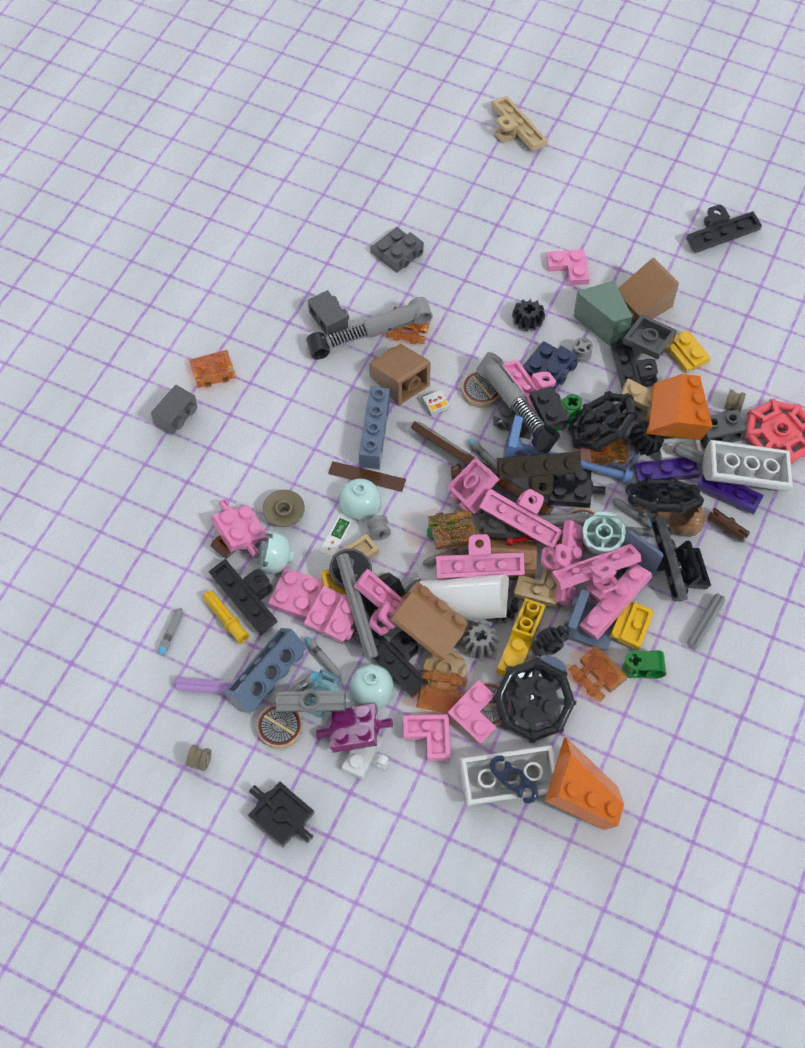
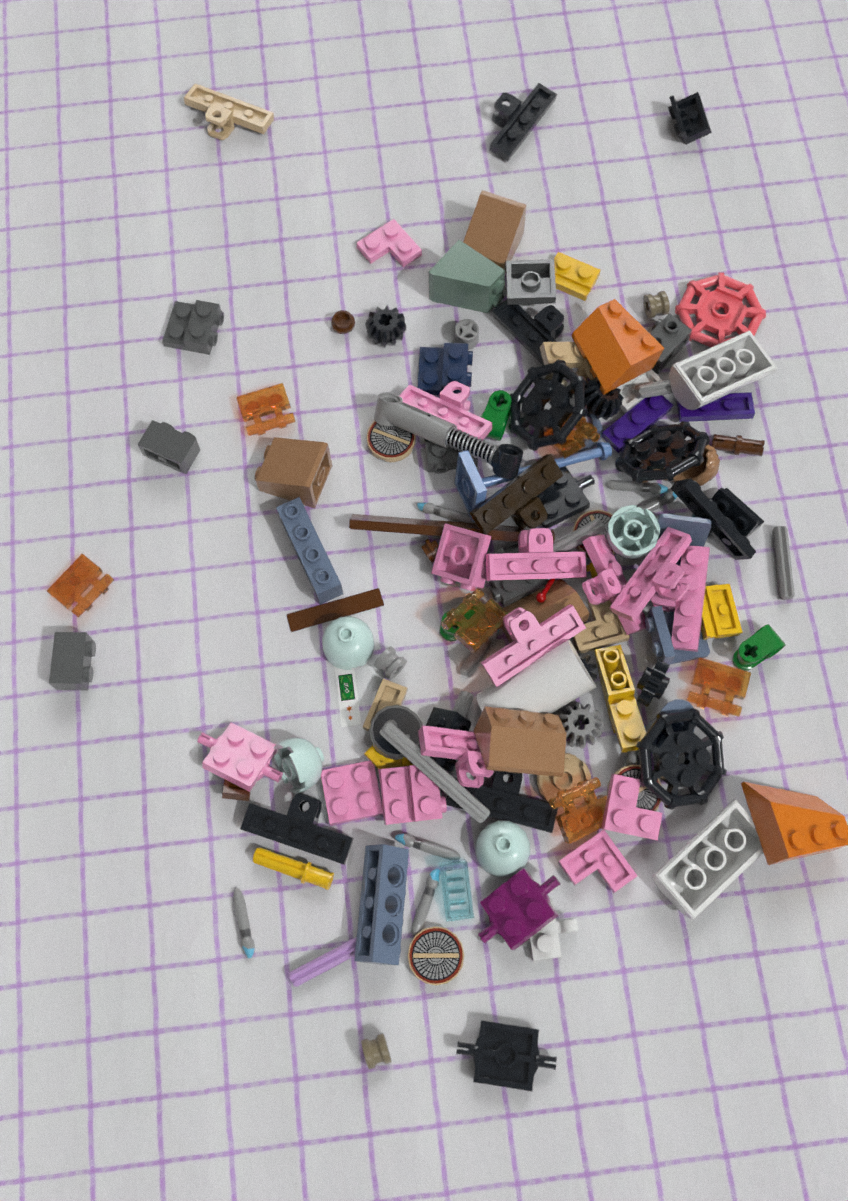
camera: 30 degrees left, 10 degrees up
(280, 501) = (271, 691): dark tan dish -> none
(296, 701) = (439, 921): light grey piece -> none
(415, 312) = (268, 391): piece -> none
(435, 402) = (353, 482): white tile -> none
(501, 297) = (343, 322): none -> reddish brown plate
(525, 782) = (735, 858): dark blue piece -> none
(549, 407) = (486, 422): black bracket -> none

